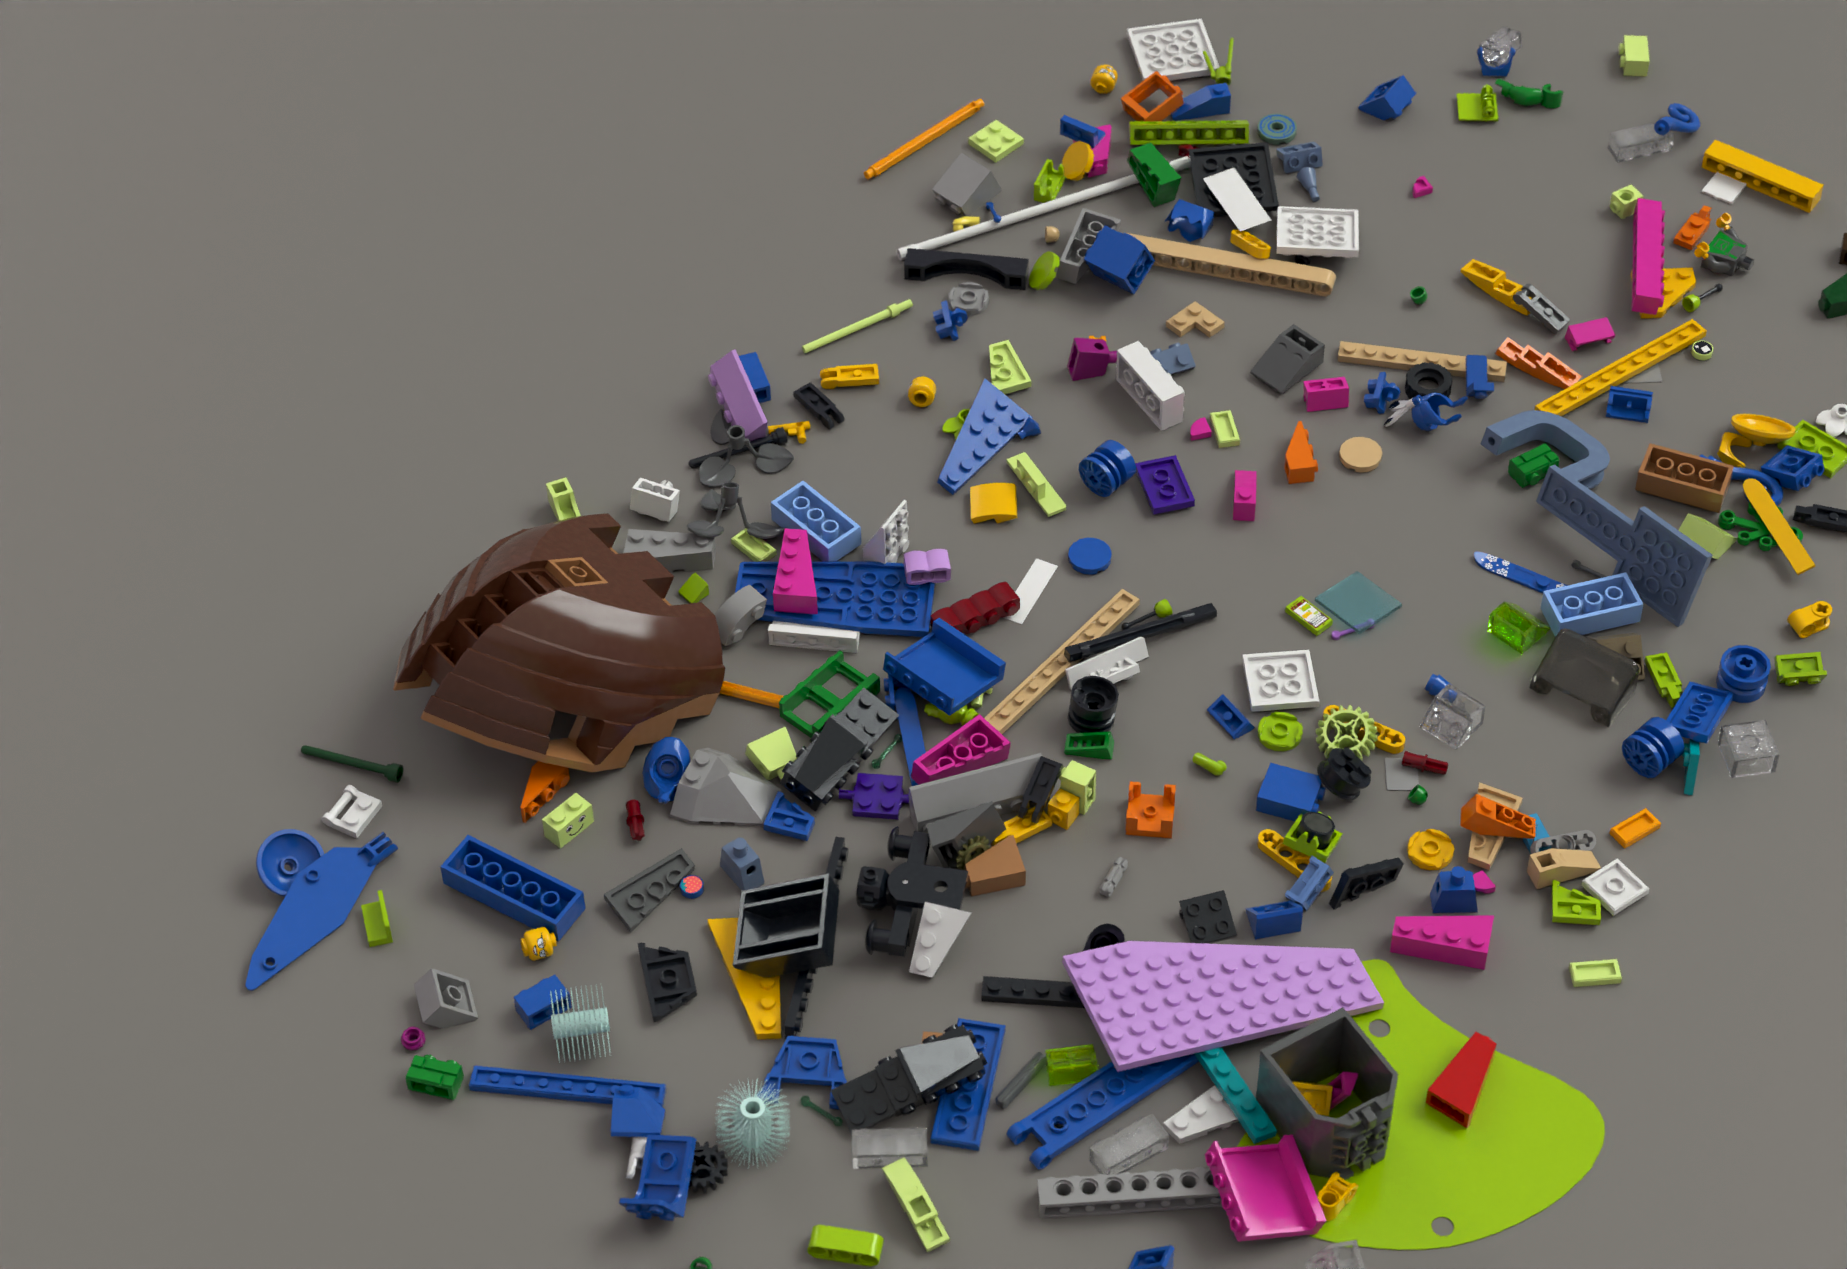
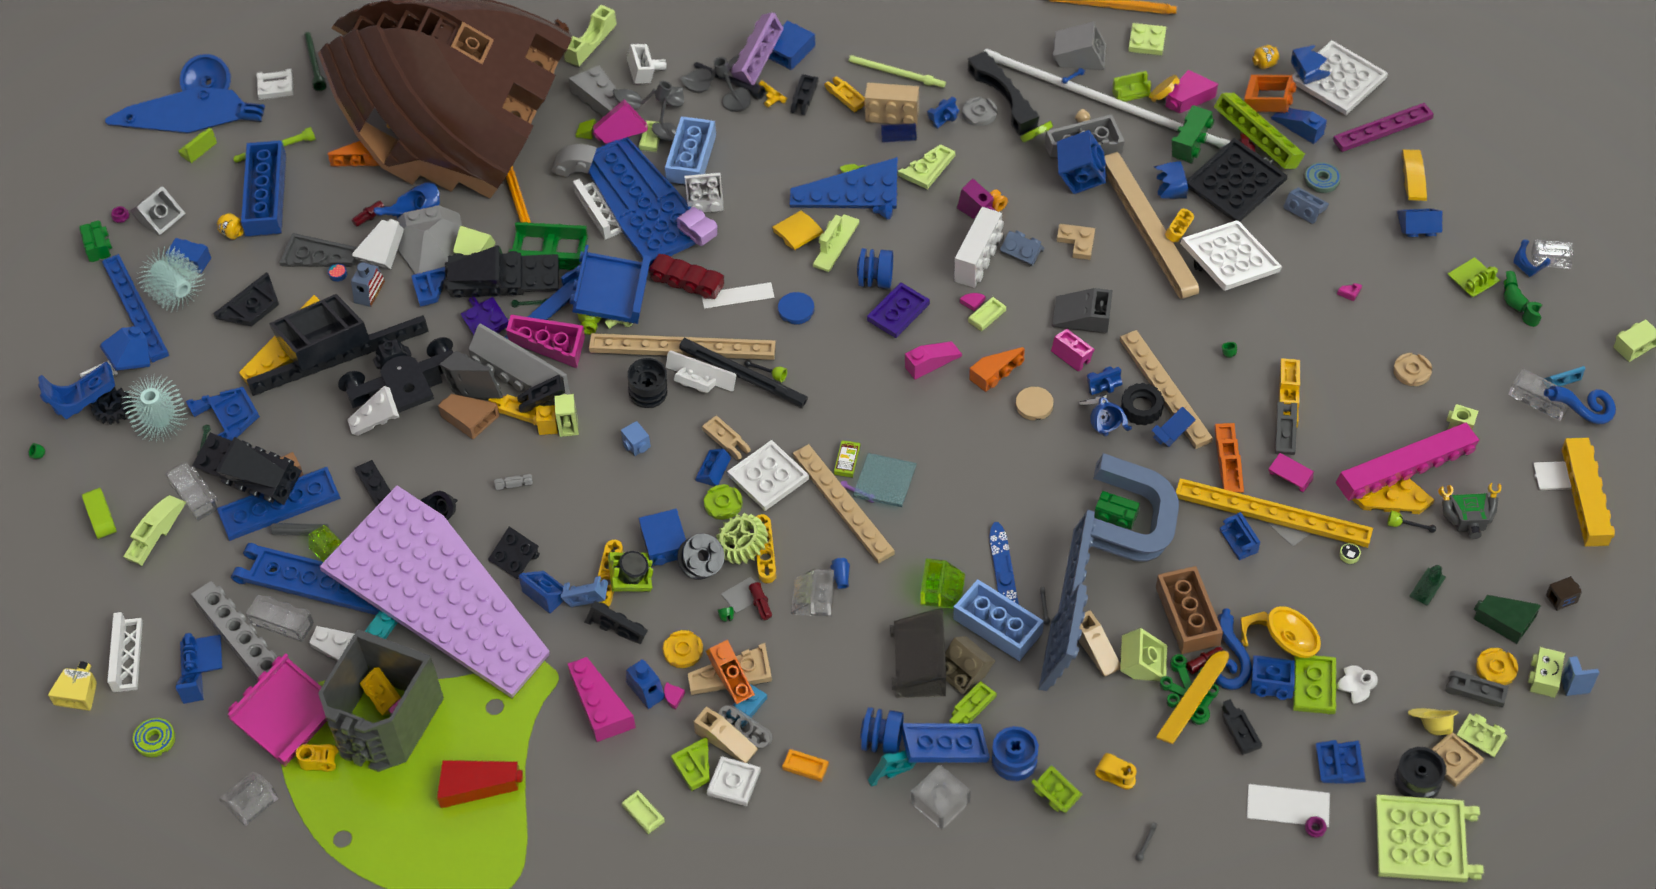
camera: 55 degrees right, 5 degrees up
(463, 818) = (305, 135): none -> lime piece
(568, 820) = (340, 182): yellowish green brick -> none
(701, 825) = (381, 244): none -> white slope
(725, 555) = (619, 123): none -> dark pink slope
(794, 580) = (631, 164): dark pink wedge -> none
(908, 347) = (891, 103): none -> tan brick
(922, 391) = (863, 136): yellow head -> none
(939, 366) = (898, 132): none -> clear blue tile
(965, 221) = (1050, 67): light yellow arm -> none
(977, 844) = (459, 386): olive gear -> none
(1080, 131) = (1191, 72): blue panel -> none
(1090, 751) = (622, 405): green slope -> none
(1116, 1240) = (200, 654): none -> blue hinge
(1148, 55) = (1308, 63): none -> blue piece
(1149, 754) = (635, 438): none -> medium blue brick
(1149, 813) = (585, 469): orange panel -> none
(1206, 687) = (725, 437): none -> tan hinge
(1216, 768) = (655, 478): lime arm -> none
(1223, 73) = (1341, 116): lime plant -> none
(1237, 199) = (1216, 193): white sticker -> none
(1258, 59) = (1383, 127): none -> magenta plate
(1307, 178) = (1285, 222): sand blue cone -> none
(1337, 73) = (1414, 175): none -> yellow slope
(1361, 646) = (844, 504): none -> tan plate
(1541, 201) = (1412, 369): none -> tan tile
(1632, 115) = (1567, 377): none -> dark azure slope
(1694, 229) = (1480, 479): orange hinge -> none
(1739, 500) = (1194, 665): none -> dark red axle
(1775, 322) = (1428, 585): none -> clear green hinge

